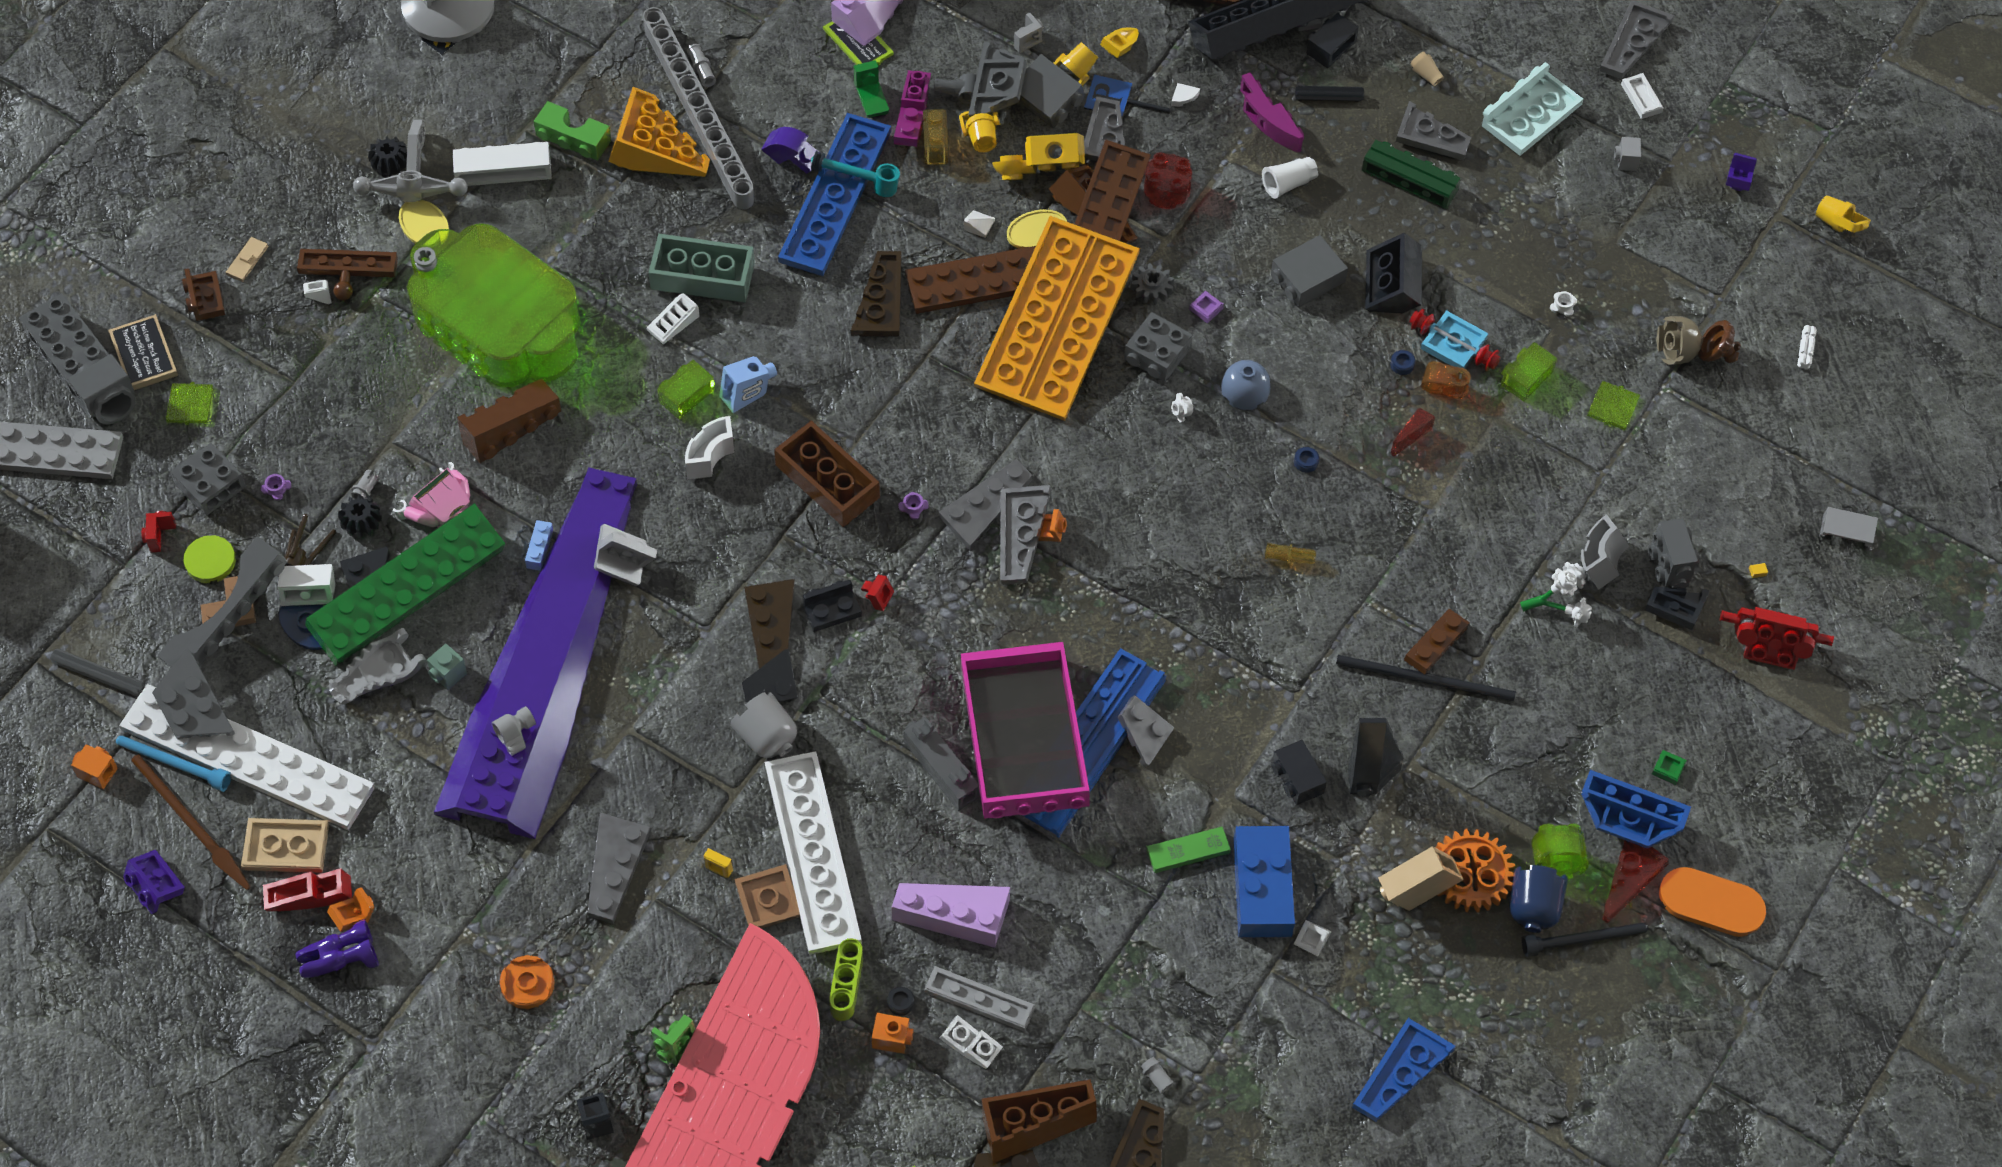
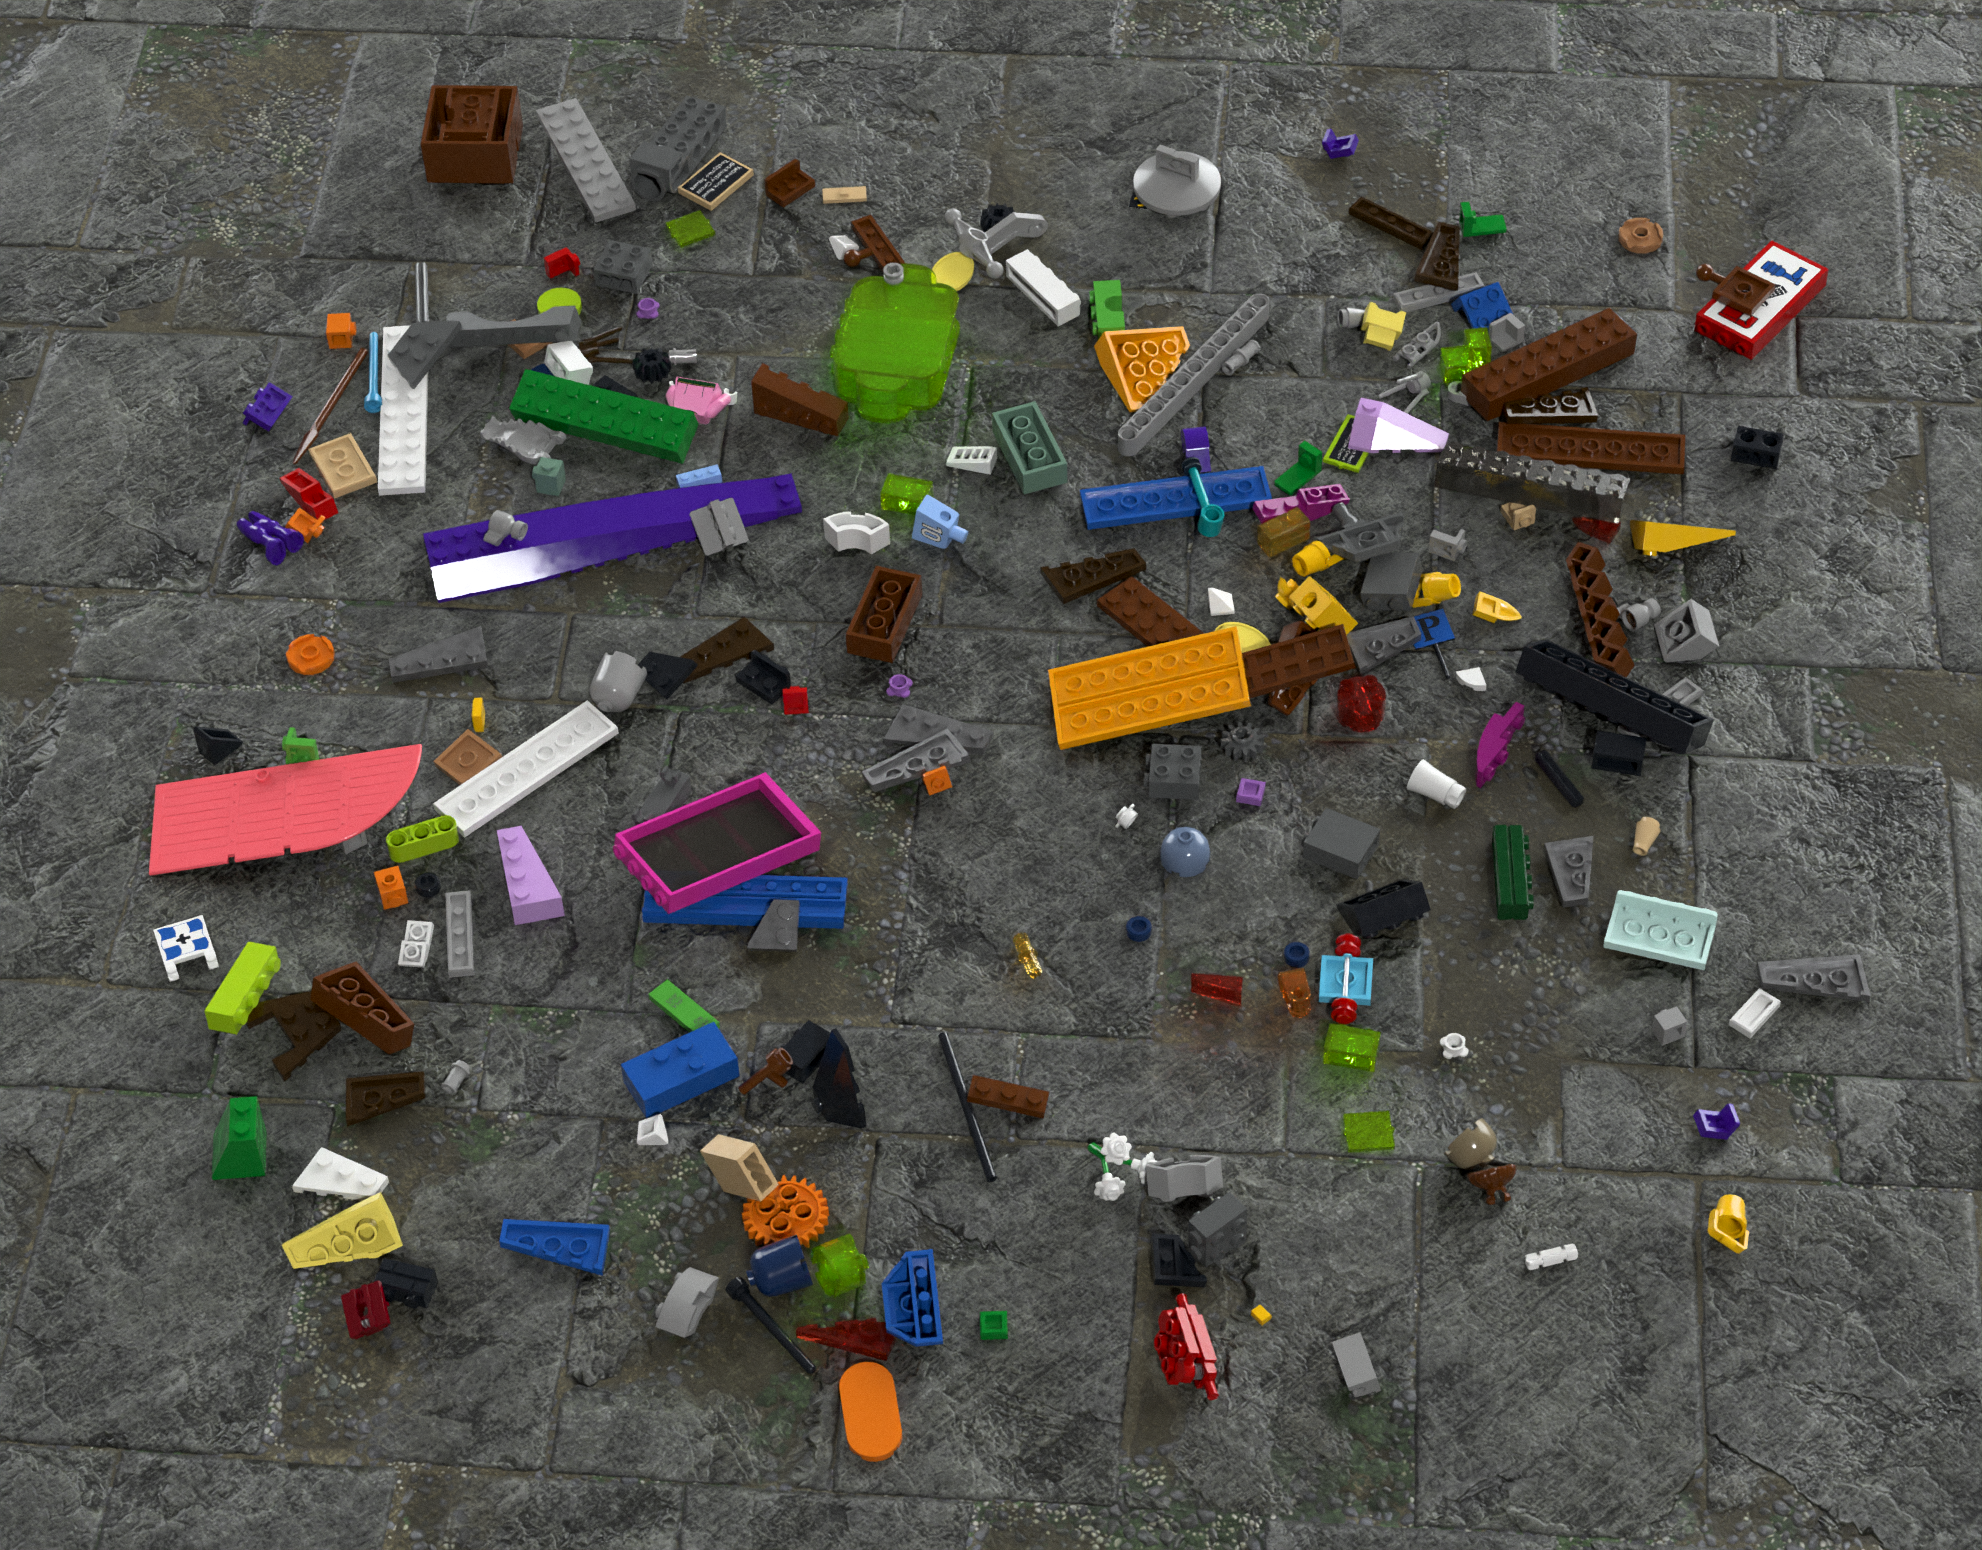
camera: 65 degrees right, 10 degrees down
(1313, 795) = (778, 1064): none -> reddish brown piece
(1538, 1001) = (686, 1302): none -> light grey brick

